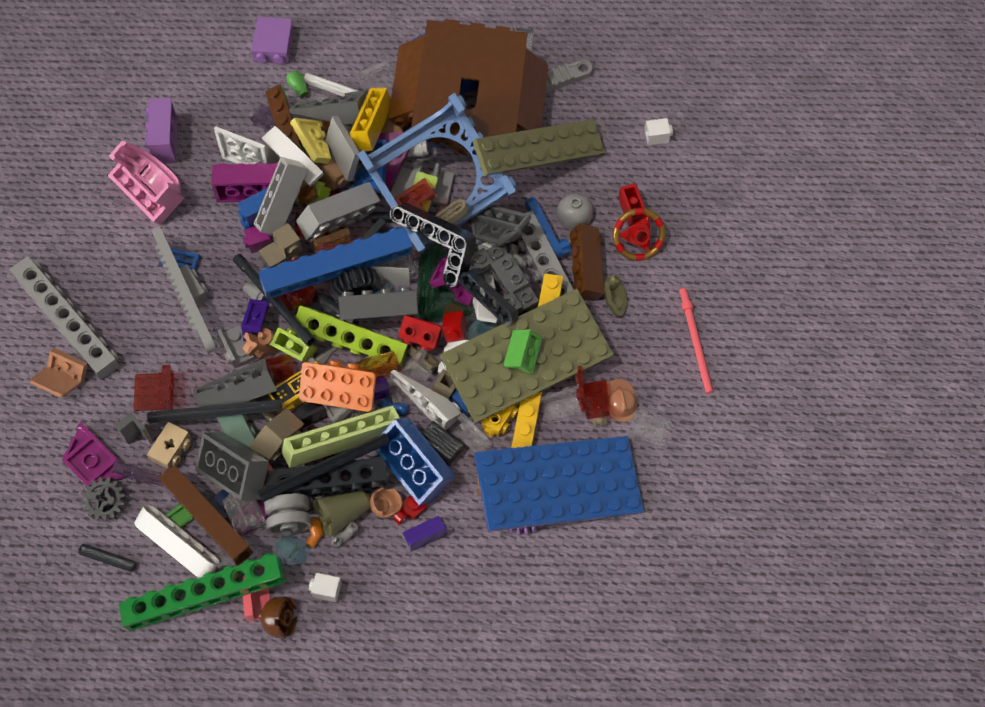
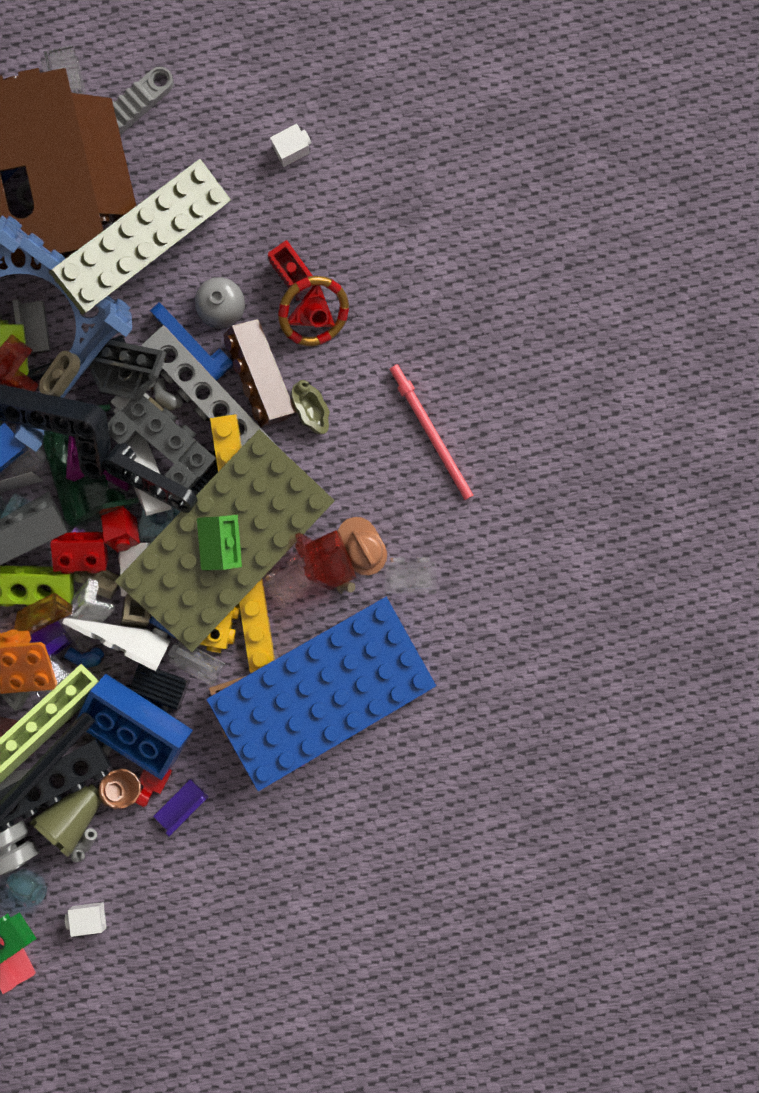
camera: 15 degrees left, 20 degrees up
(278, 618) = (44, 978): reddish brown cylinder -> none
(316, 533) = (48, 852): orange arm -> none

